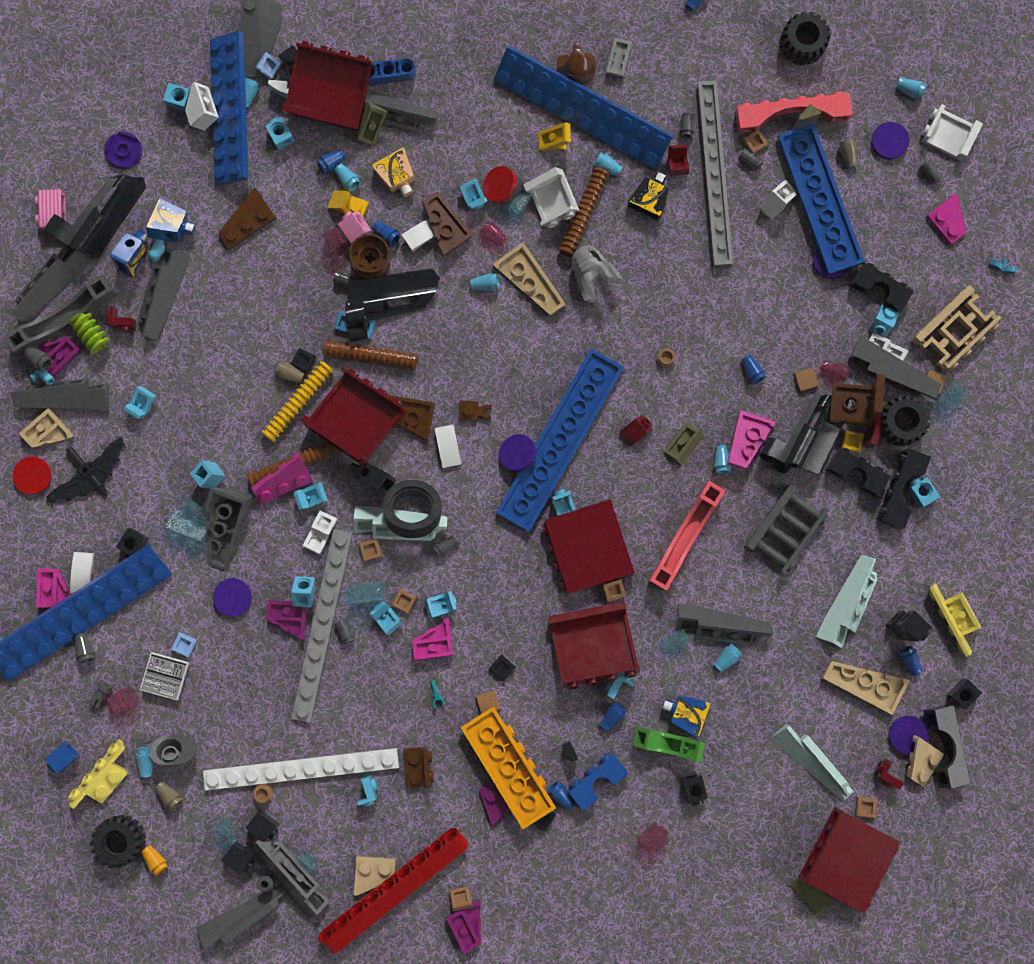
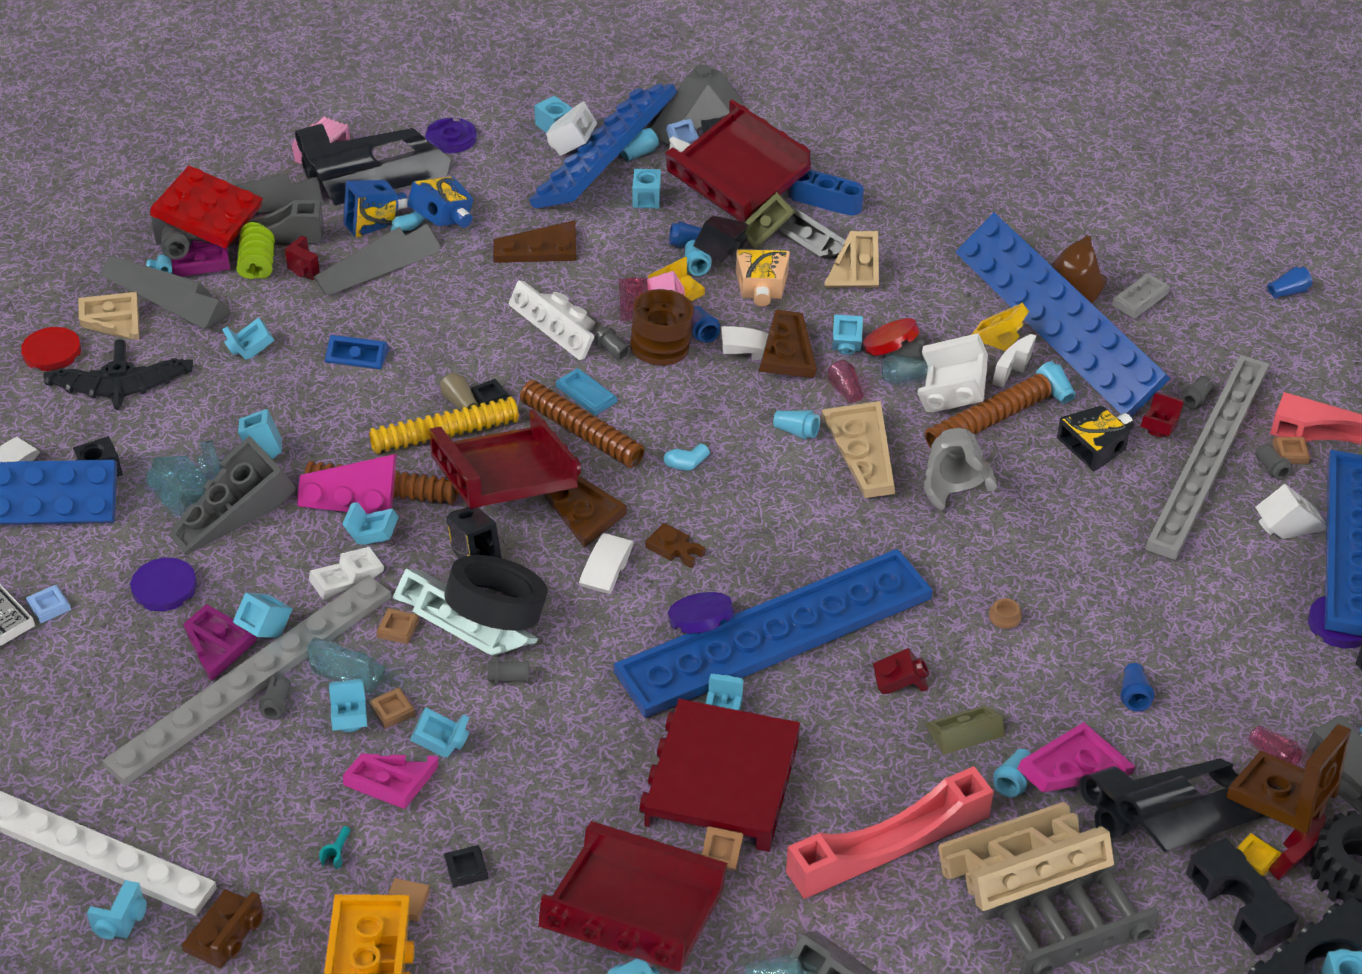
camera: 30 degrees right, 40 degrees down
(36, 320) = (206, 206): none -> red plate
(206, 372) = (356, 352): none -> blue slope
(300, 277) = (555, 317): none -> white bracket
(356, 159) = (721, 237): none -> black slope
(369, 298) = (632, 365): black panel -> none
(442, 346) = (685, 459): none -> medium azure arm
(445, 130) = (857, 262): none -> tan wing
(578, 157) = (1015, 359): none -> white slope
(767, 522) = (1025, 855): none -> tan fence
(806, 379) = (1218, 741): medium nougat tile -> none

